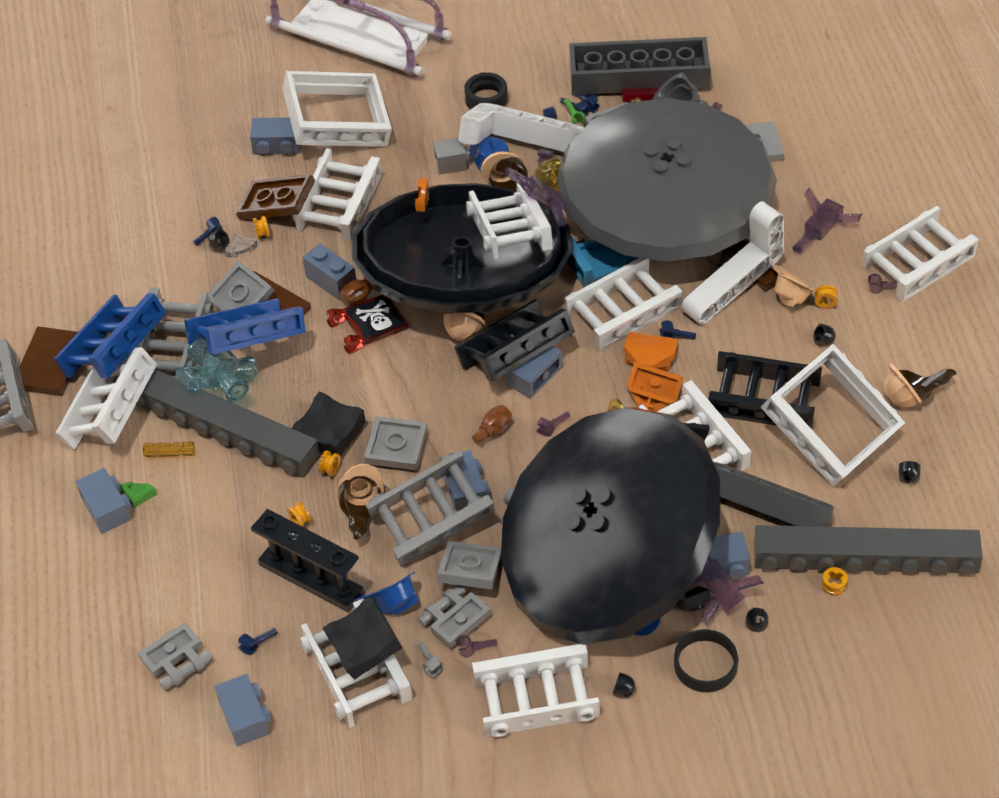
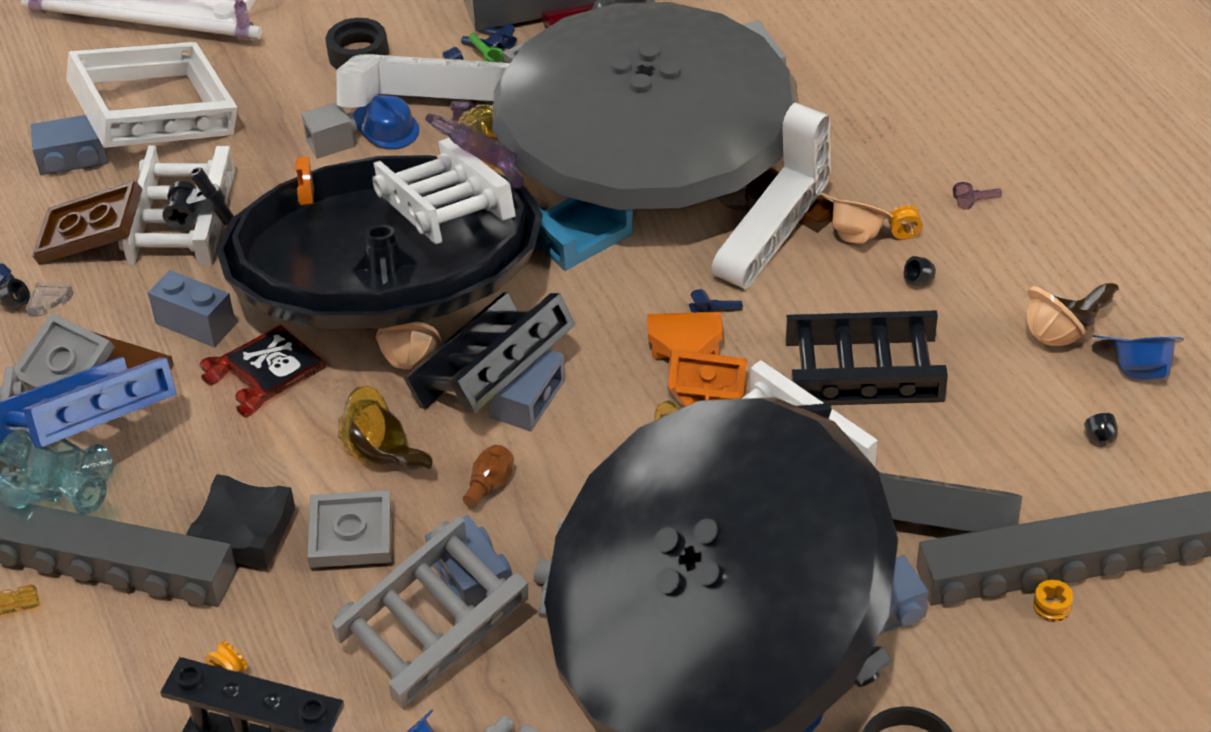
camera: 15 degrees left, 5 degrees down
(261, 227) = (75, 266): light orange bush -> none
(329, 464) = (256, 577): light orange bush -> none
(347, 194) = (188, 200): none -> black piece
(355, 292) = (237, 328): dark orange piece -> none
(355, 491) = (309, 609): light nougat piece -> none
(427, 382) = (375, 433): none -> piece
(469, 565) = (511, 684): light grey plate -> none
(494, 169) = (409, 133): light nougat piece -> none
(547, 427) = (568, 463): hand -> none
(633, 320) = (651, 297): white fence -> none
(723, 589) = (908, 646): piece -> none
(753, 626) = (952, 679): black hinge -> none
(804, 437) = (950, 407): white window -> none
(822, 220) = (866, 128): piece -> none
(925, 272) = (1025, 170): white fence -> none
(955, 425) = (1145, 356): none -> blue piece

